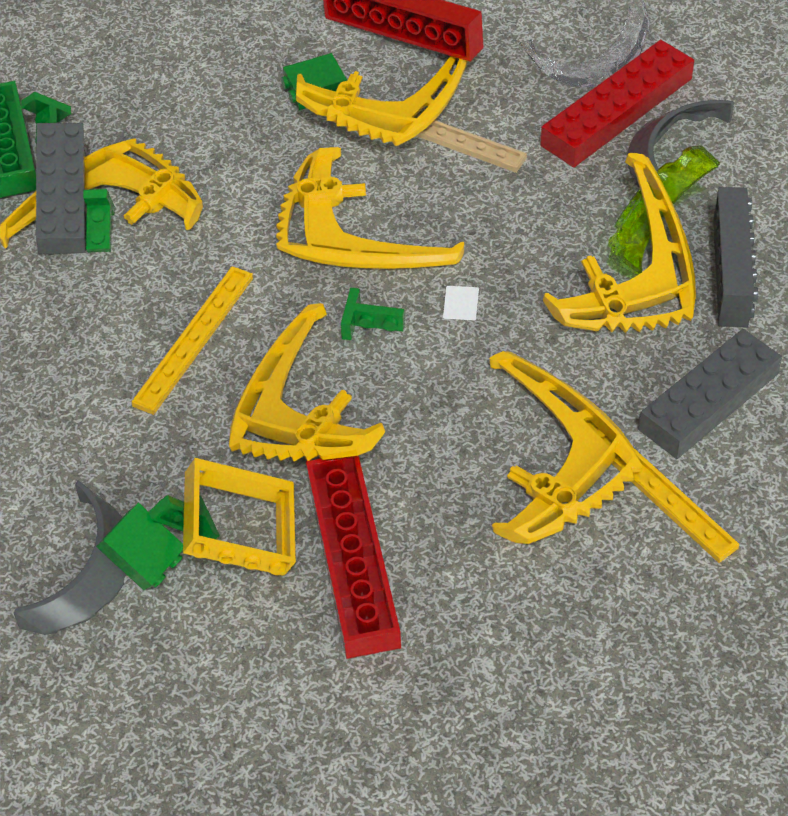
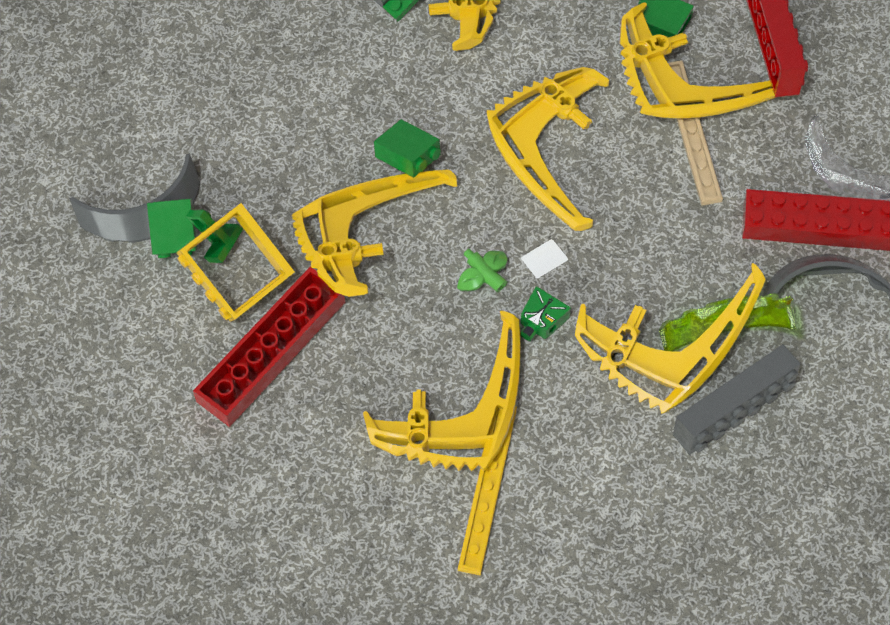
camera: 50 degrees right, 10 degrees up
(192, 340) = (365, 126): yellow tile -> none
(256, 318) = (407, 148): none -> green brick
(369, 316) = (468, 203): green bracket -> none
(433, 349) = (483, 270): none -> bright green plant
(519, 333) = (543, 315): none -> green torso
(709, 393) = (596, 469): dark grey brick -> none

